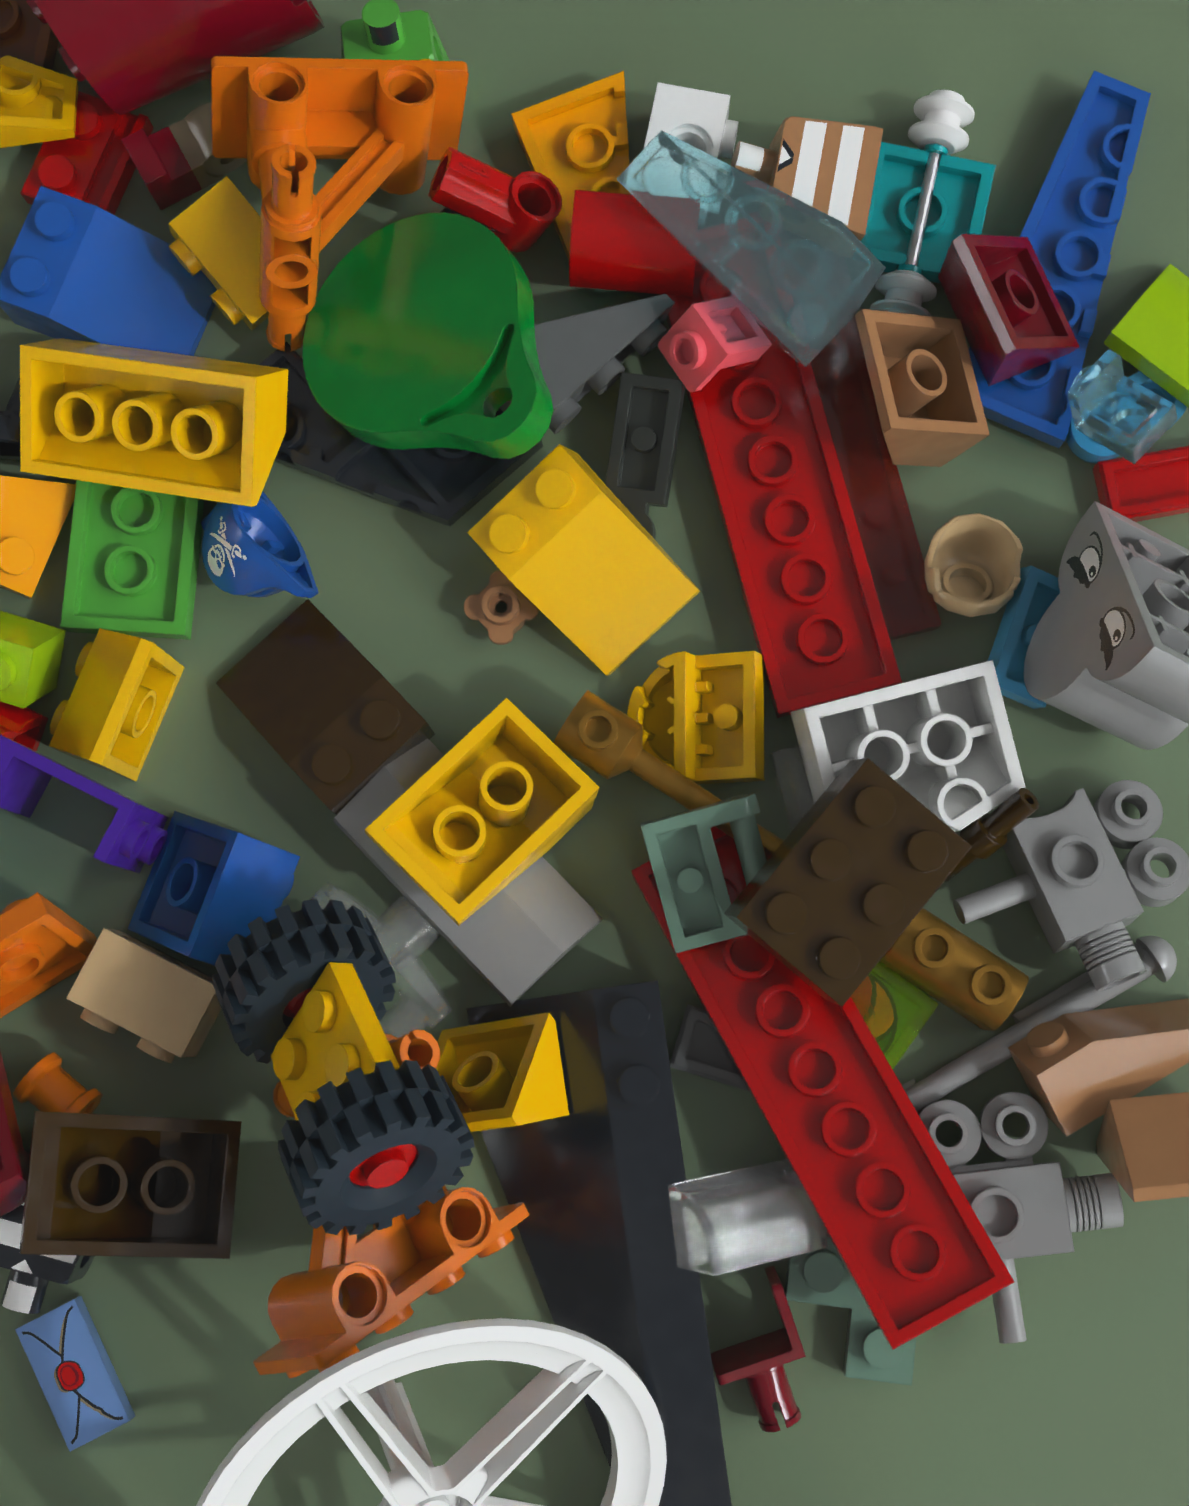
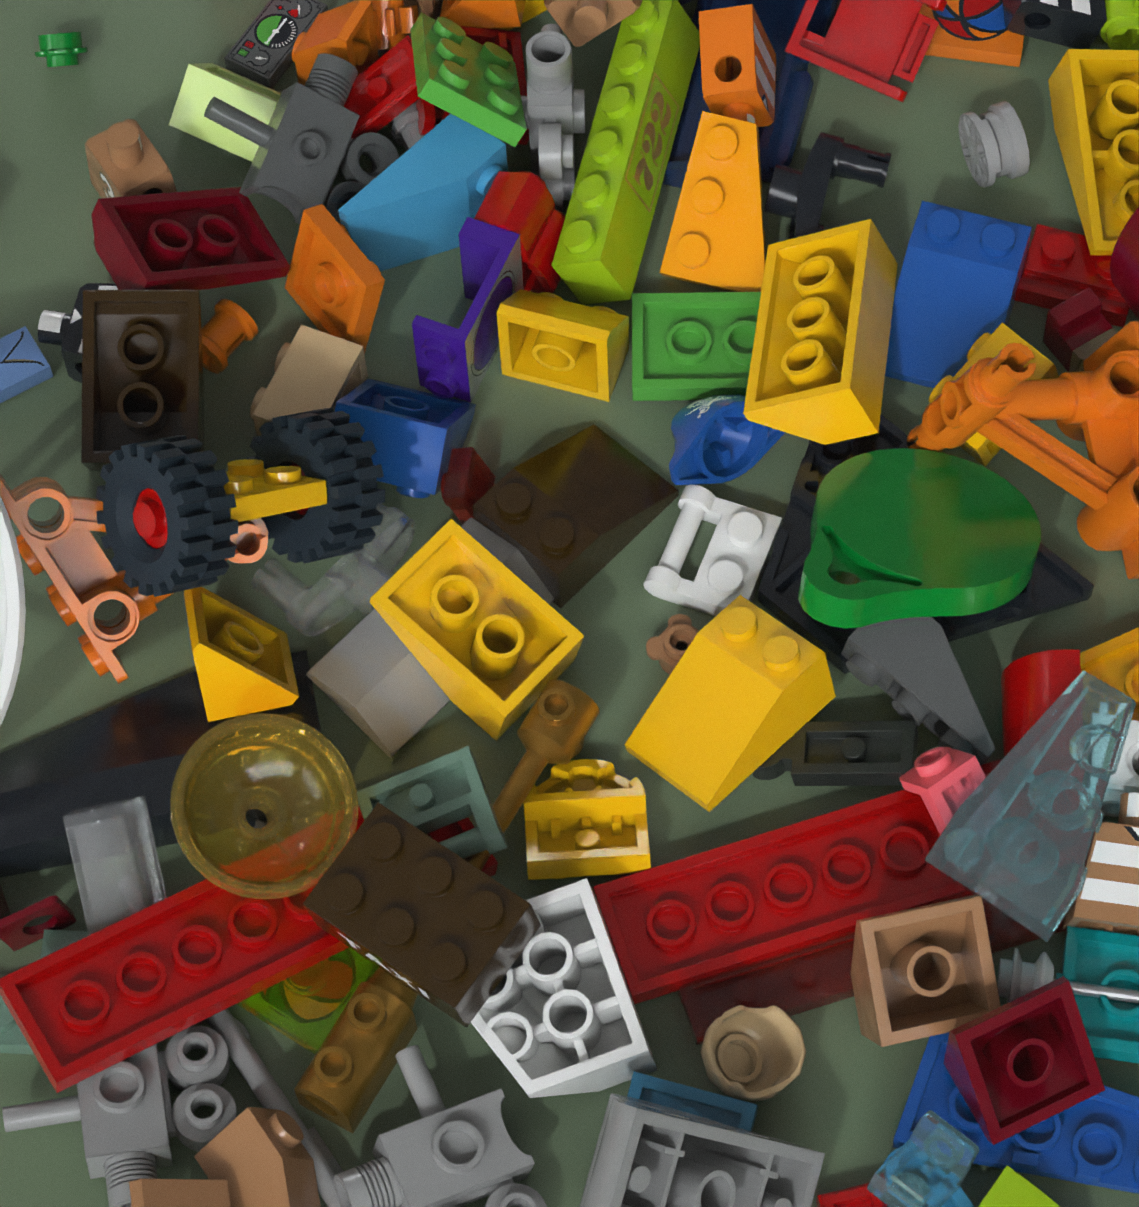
camera: 80 degrees right, 20 degrees down
(289, 822) = (465, 482): none -> clear red plate
(398, 548) = (732, 560): none -> white plate
(509, 206) = (1076, 588): red piece -> none
(744, 1027) = (269, 767): none -> clear yellow hat
(991, 830) = (482, 1071): dark brown bar -> none

